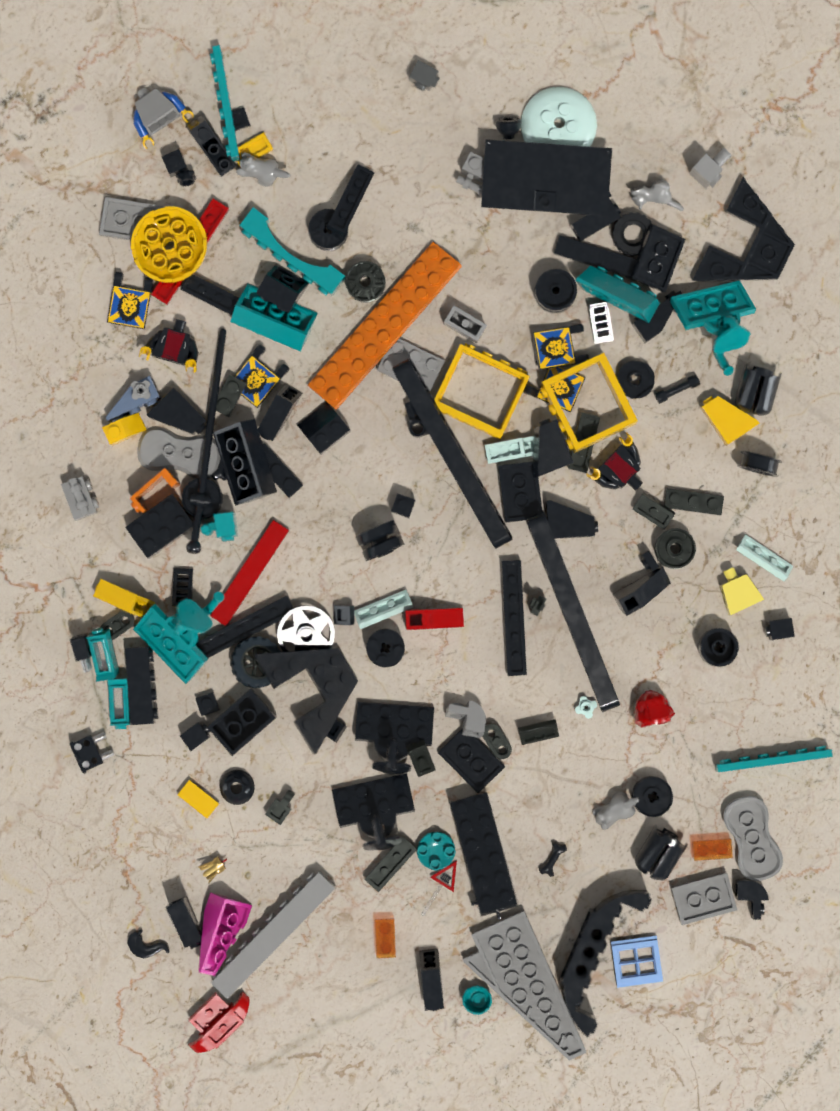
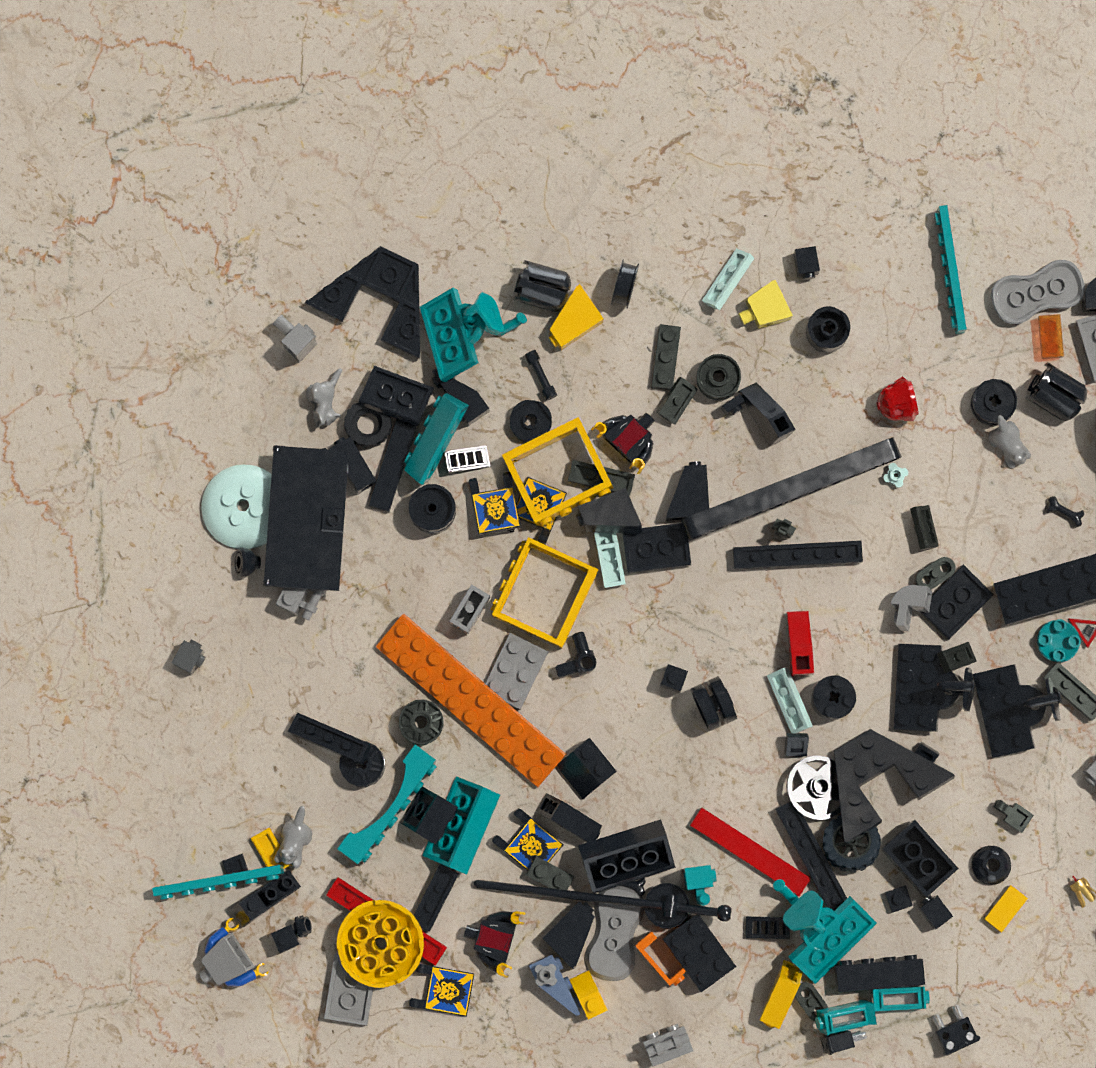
camera: 90 degrees left, 5 degrees down
(281, 474) = (641, 814): black plate -> none
(452, 453) = (614, 623): black beam -> none

